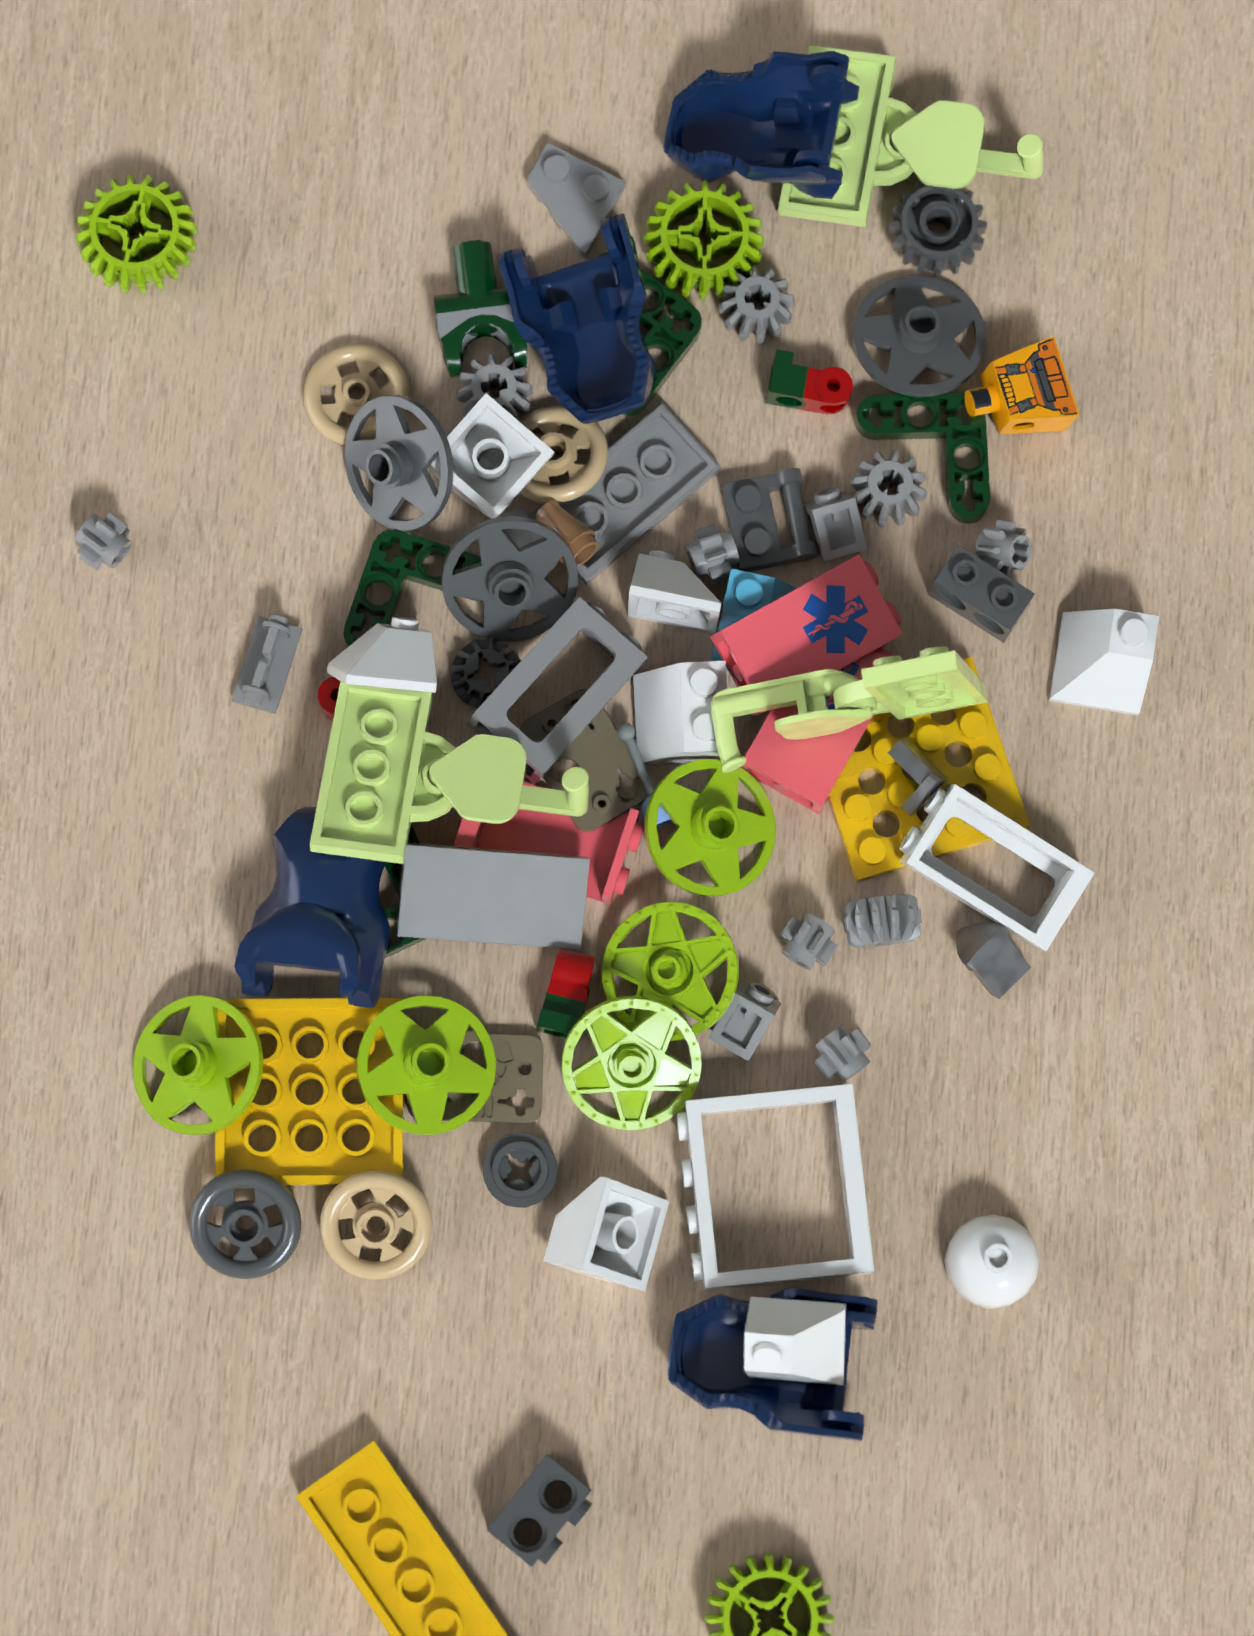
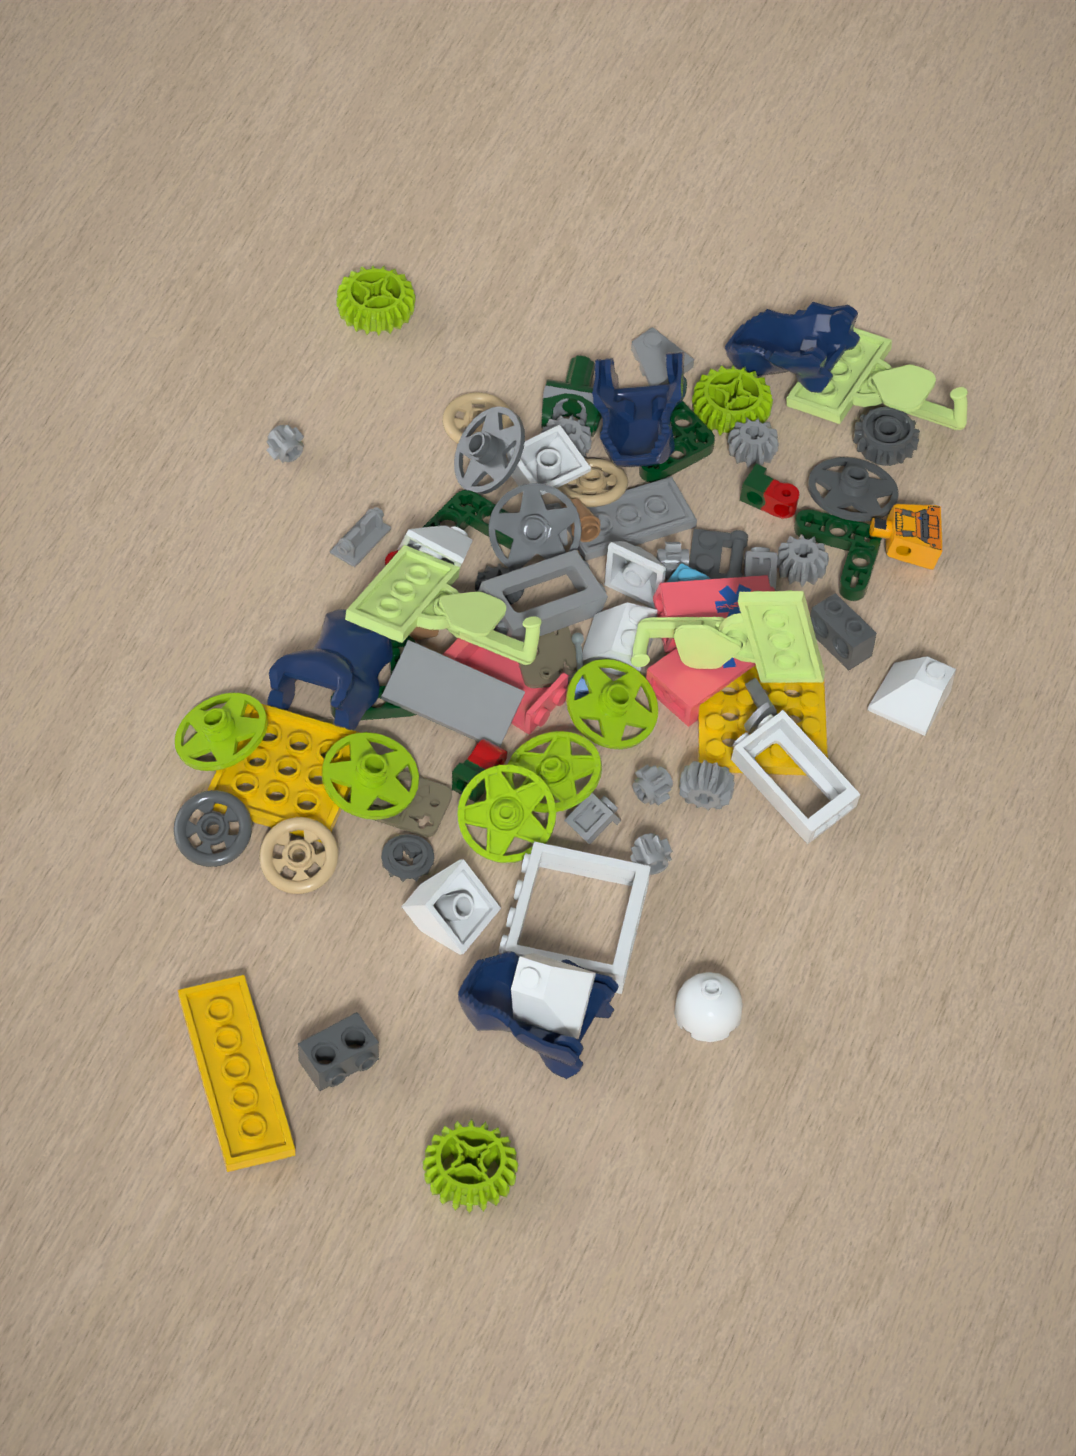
camera: 20 degrees right, 25 degrees down
(991, 956) = (775, 833): flat silver tile -> none
(1004, 547) = (869, 609): light grey gear -> none

